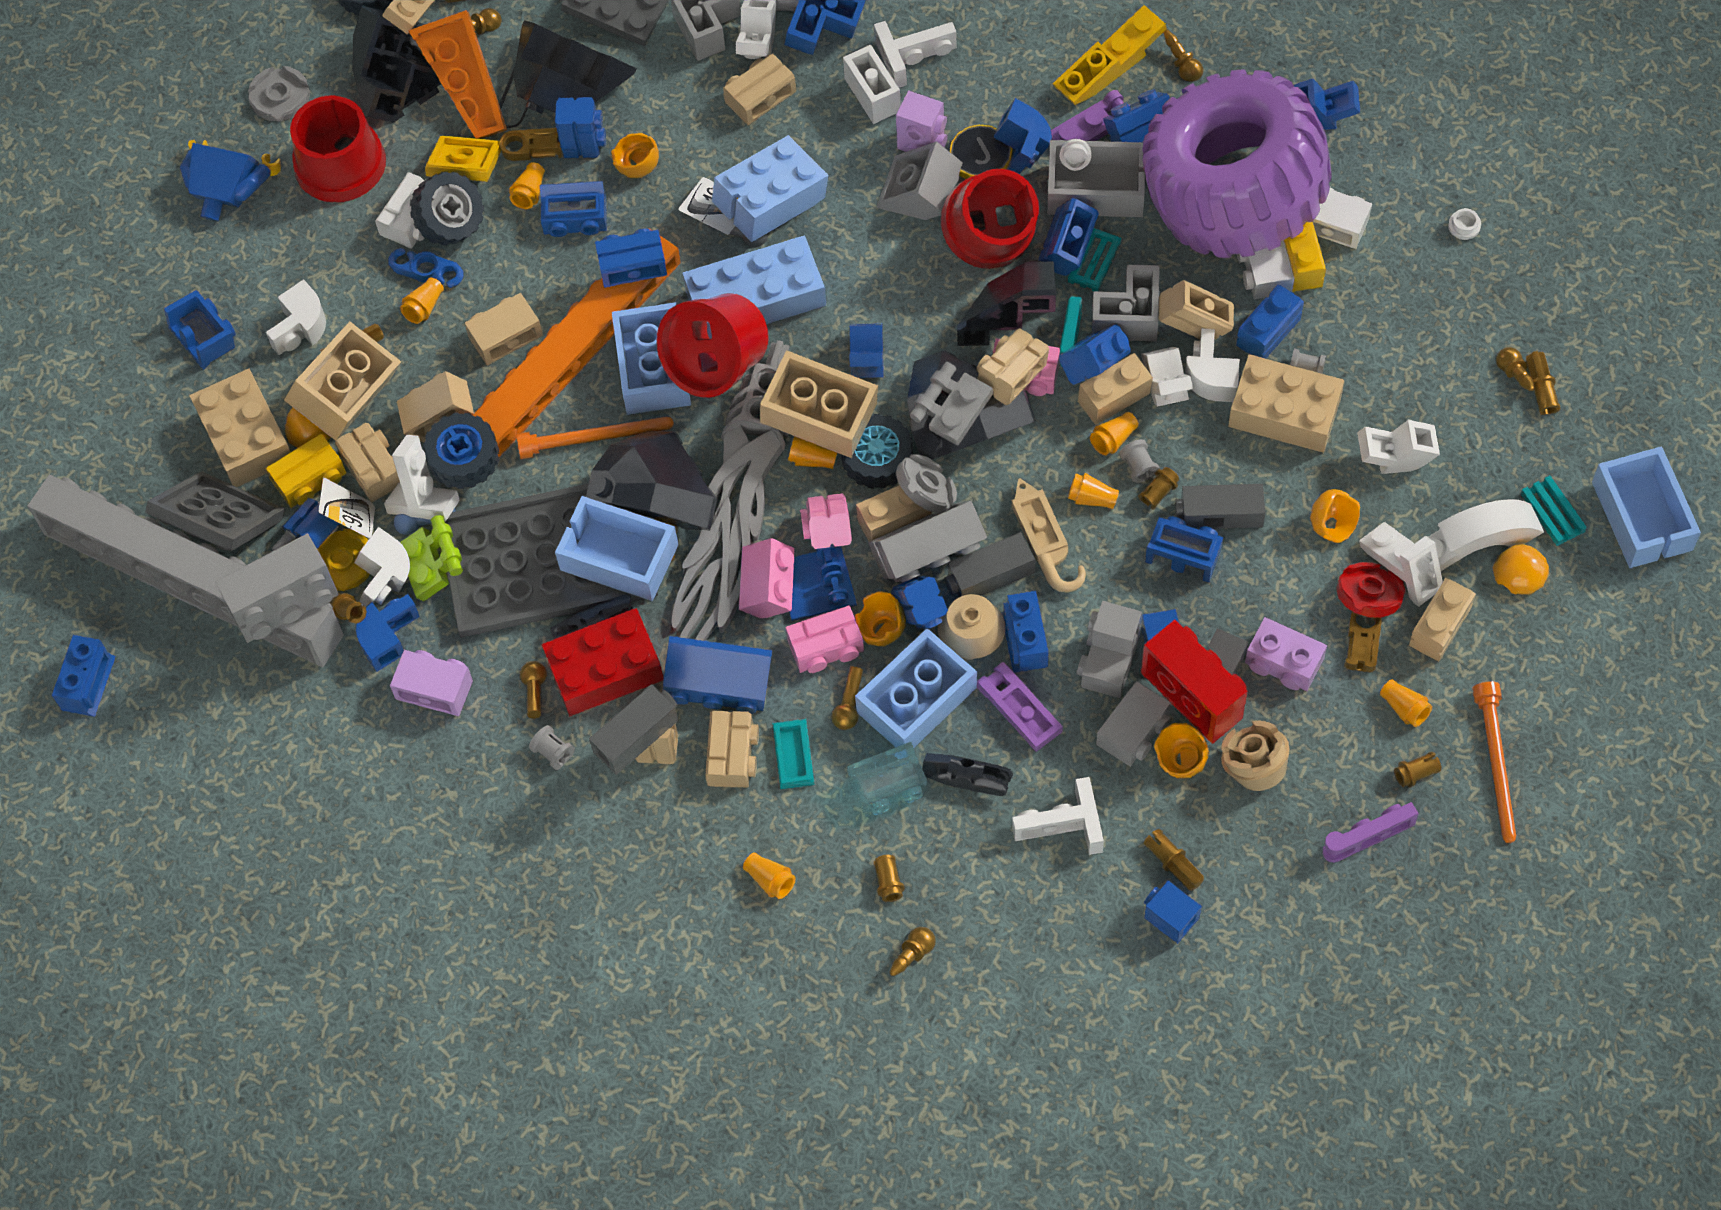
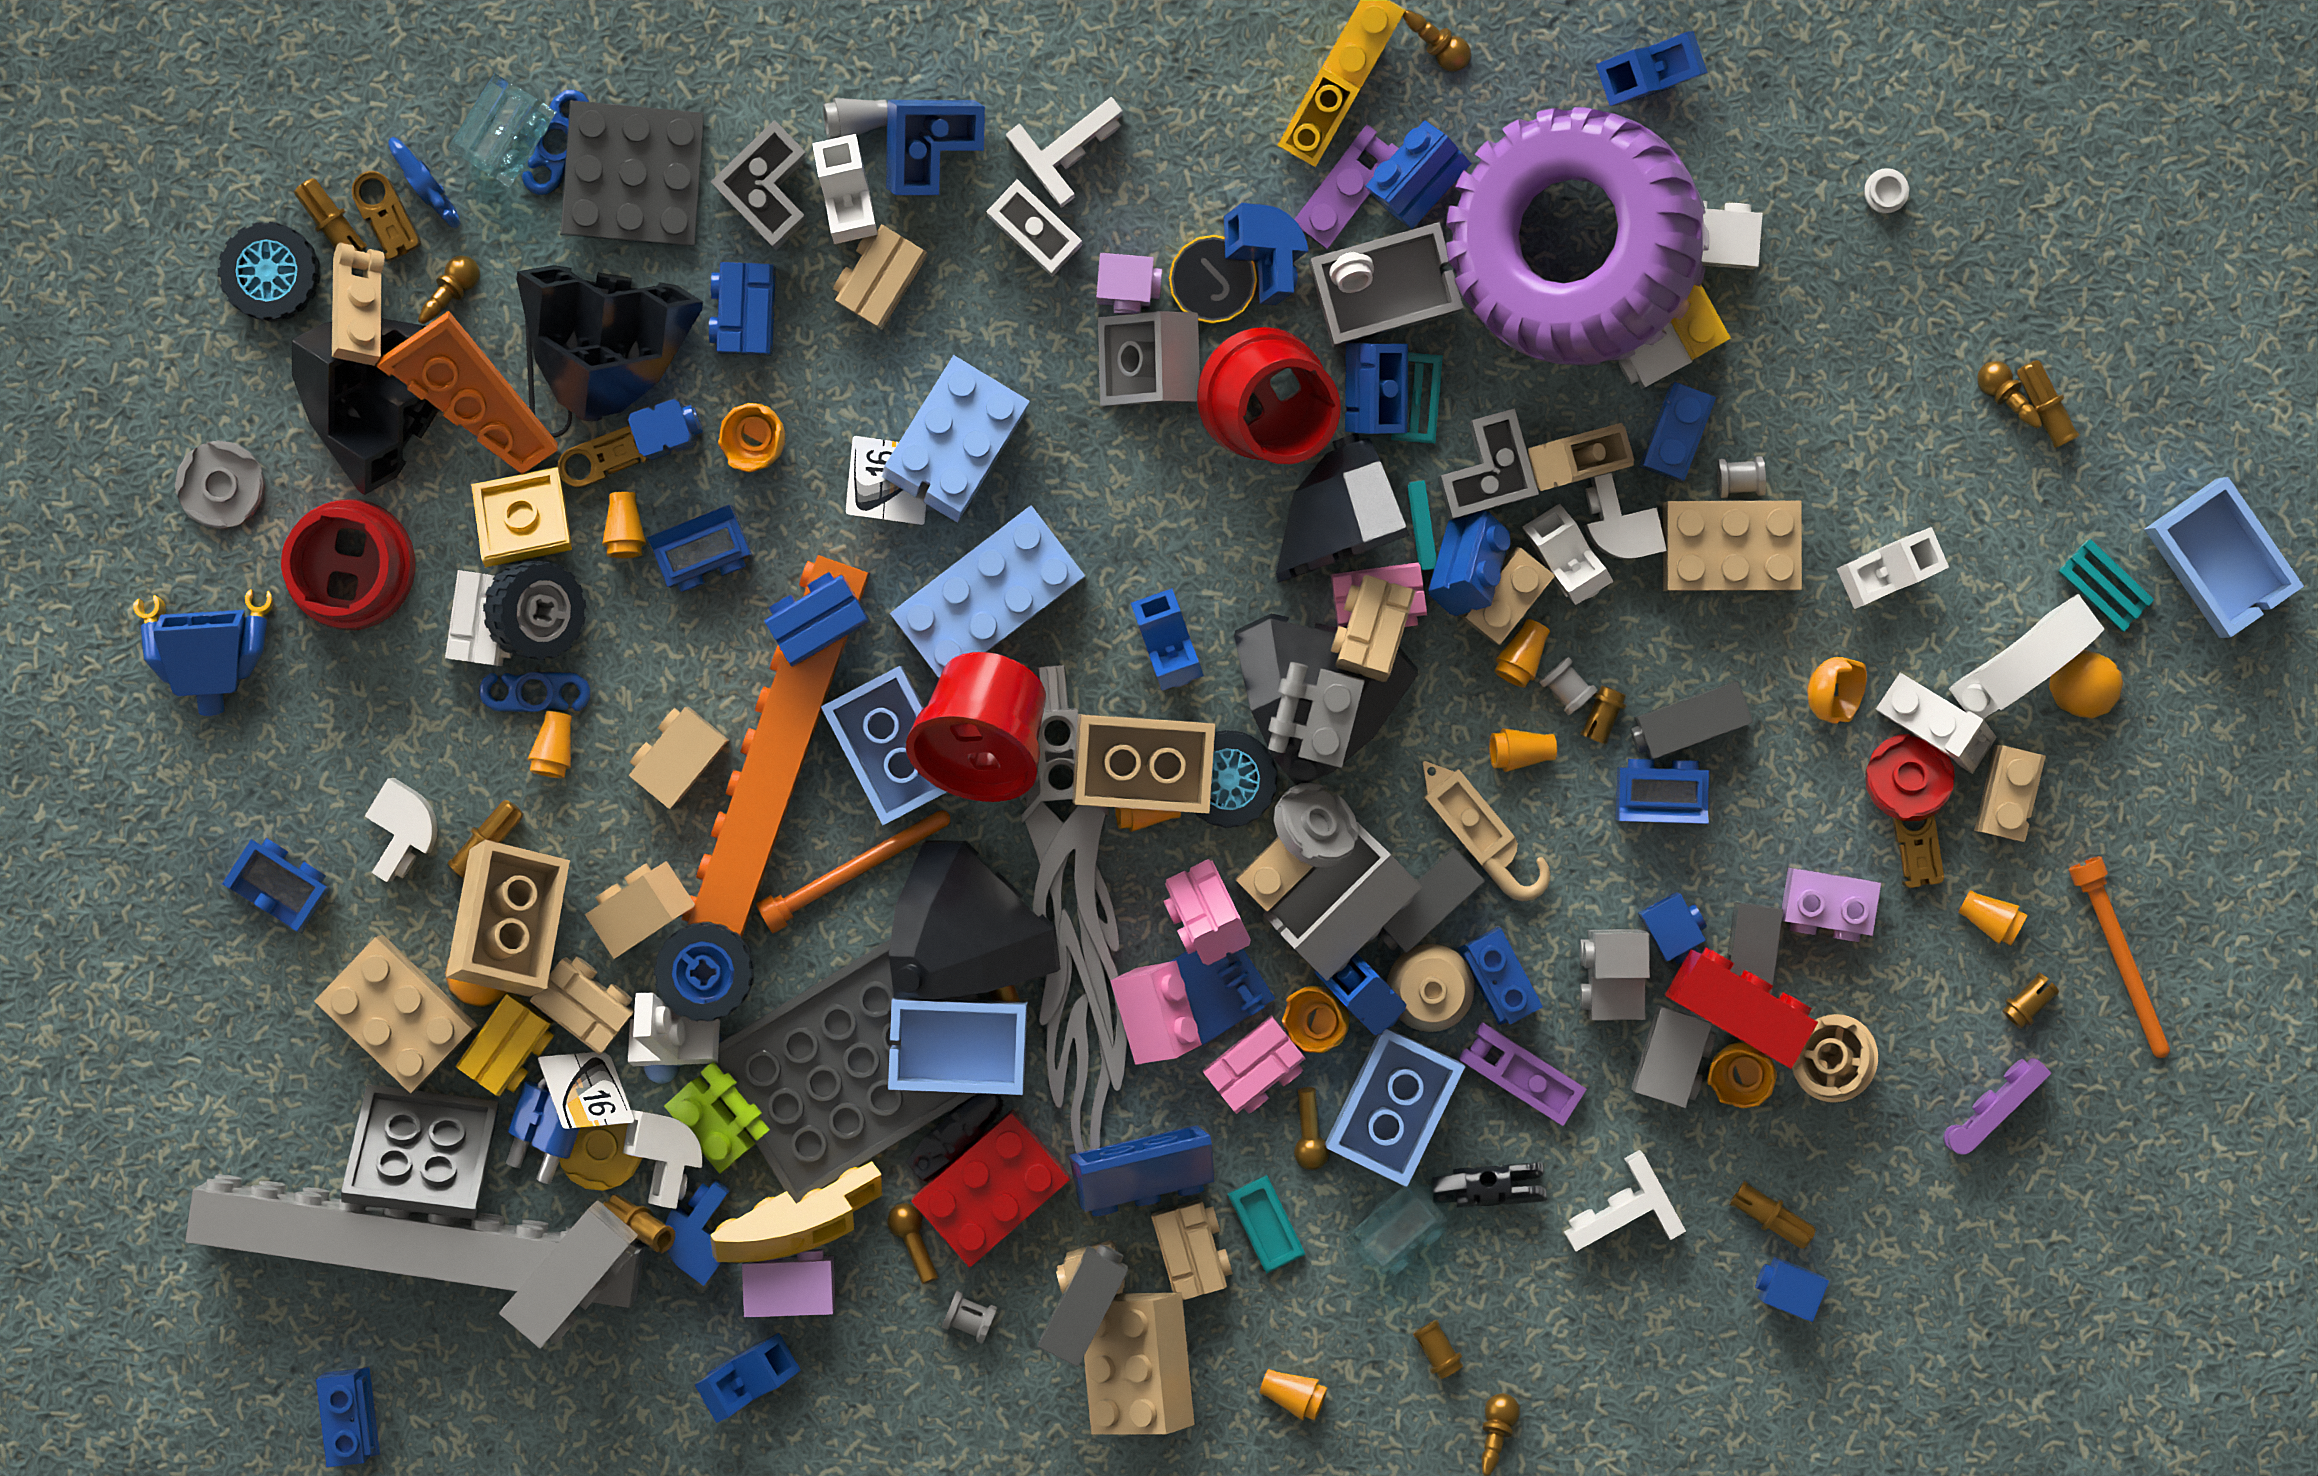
camera: 20 degrees left, 25 degrees up
(375, 737) = (747, 1377): none -> blue brick
(457, 637) = (784, 1228): none -> slope
(659, 807) = (1140, 1367): none -> tan brick
(662, 82) = (744, 308): none -> blue brick

